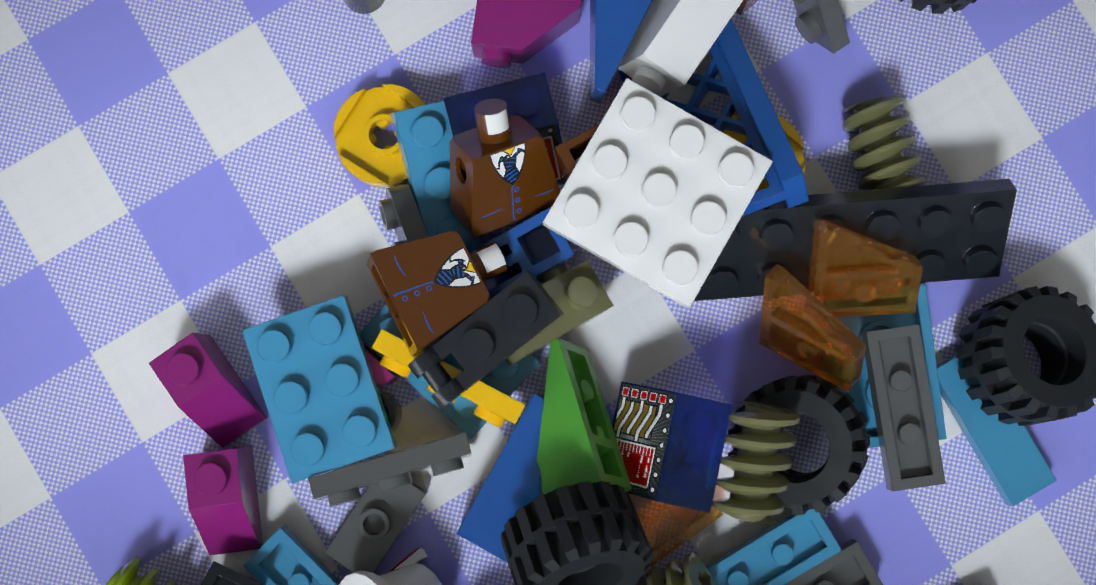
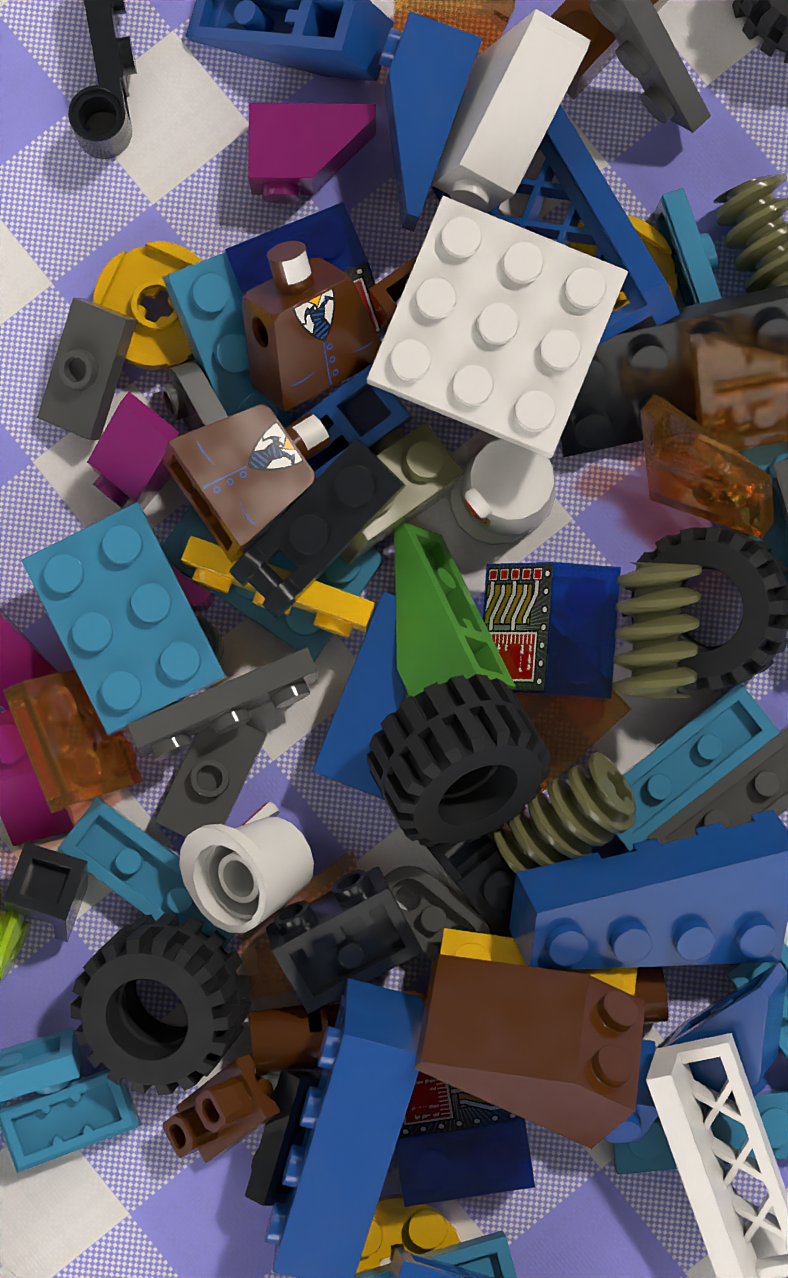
camera: 10 degrees left, 0 degrees up
(258, 486) = (68, 741): none -> clear orange plate
(321, 179) = (86, 368): none -> dark grey plate
(345, 252) = (132, 454): none -> magenta slope
(641, 324) = (503, 493): none -> white hat
(820, 149) = (691, 252): none -> dark azure plate

